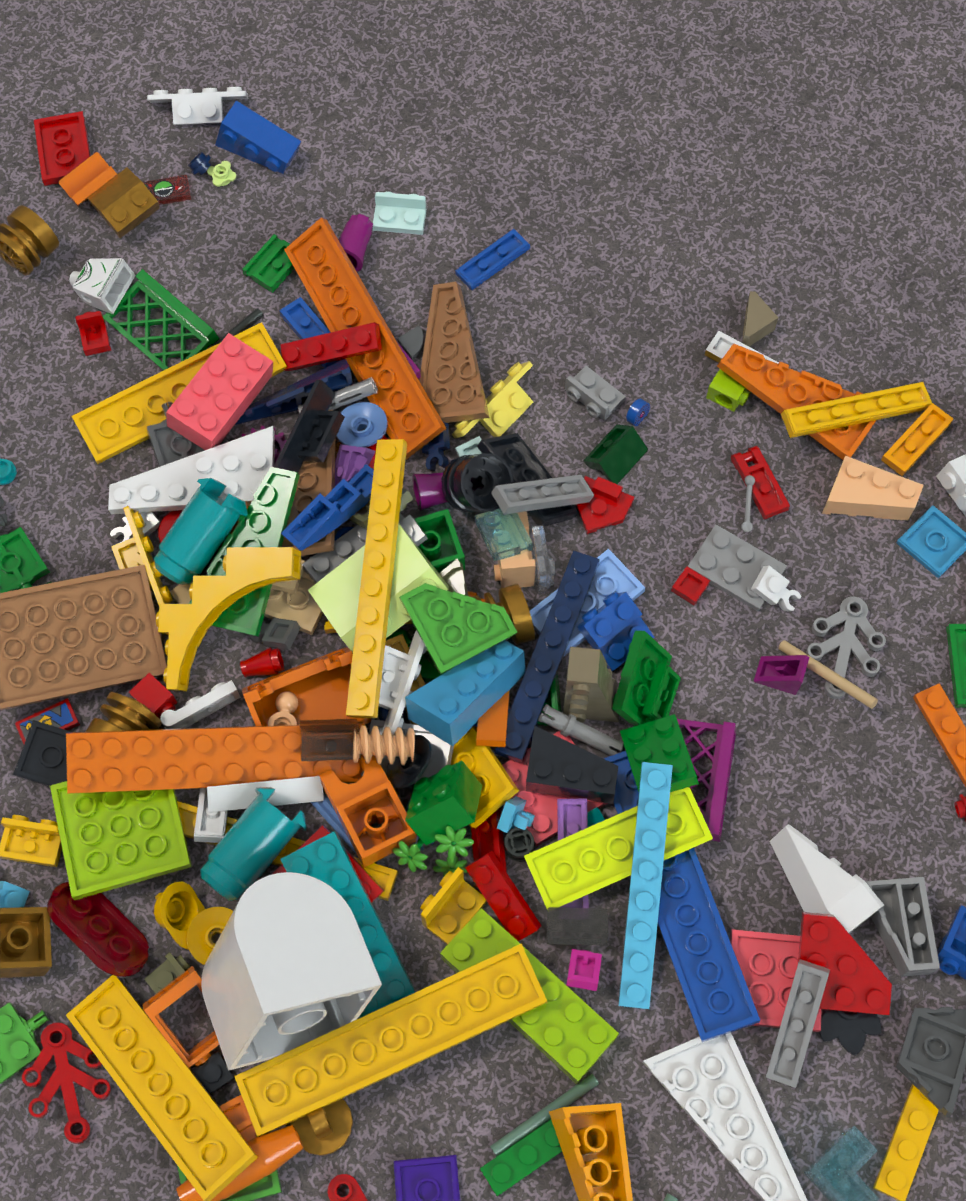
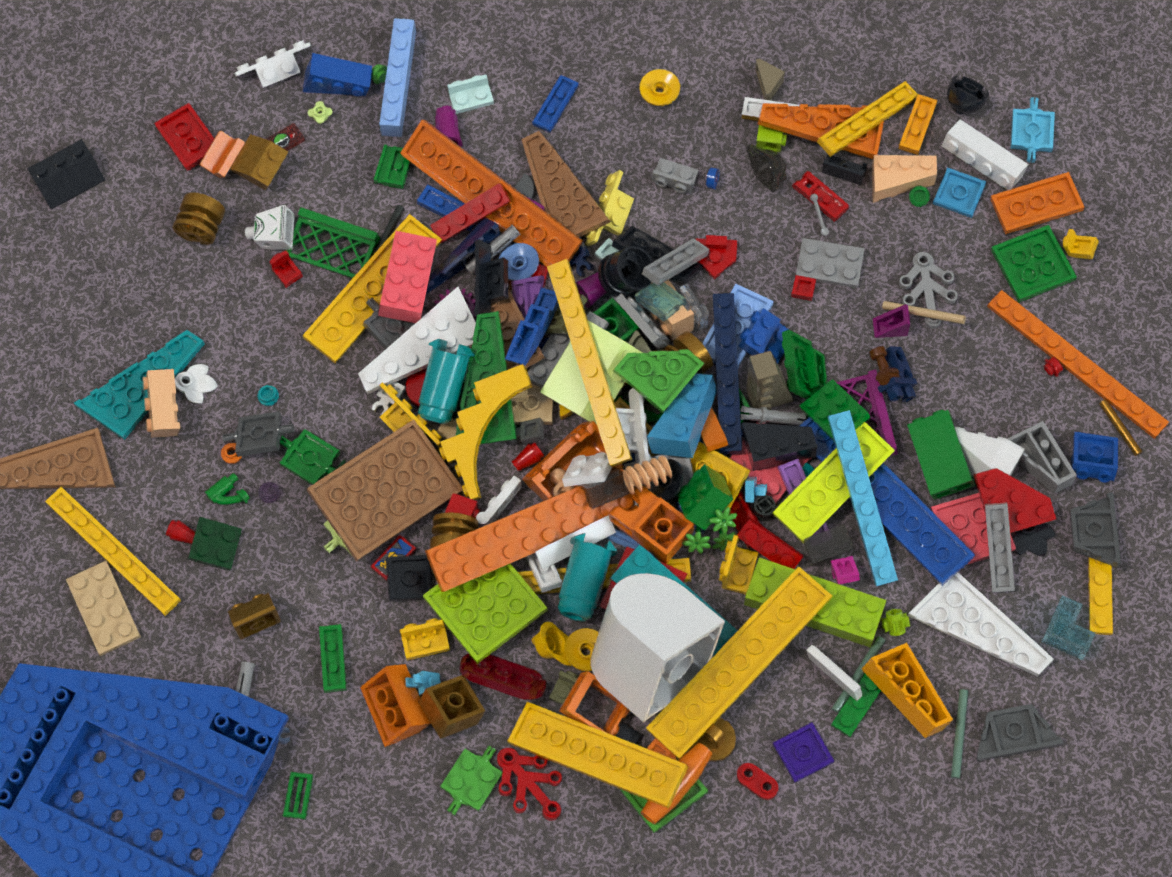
camera: 20 degrees left, 0 degrees up
(200, 164) = (300, 110): dark blue plate -> none
(308, 154) = (379, 73): none -> bright green plate
(318, 709) = (587, 470): none -> white plate
(325, 165) = (397, 77): none -> light blue brick
(472, 555) = (644, 322): none -> light grey plate
(512, 1102) = (834, 672): none -> white tile
(617, 453) = (710, 213): dark green panel -> none
(621, 1066) = (895, 622): none -> lime gear
(622, 274) = (662, 80): none -> yellow dish
(710, 422) = (767, 166): none -> clear smoke hat
(757, 737) = (894, 373): none -> dark blue hips
(772, 588) = (861, 267): white plate -> none
(772, 866) = (940, 454): none -> green panel
(803, 460) = (844, 169): none -> black hinge
(882, 527) = (919, 196): none -> green plate

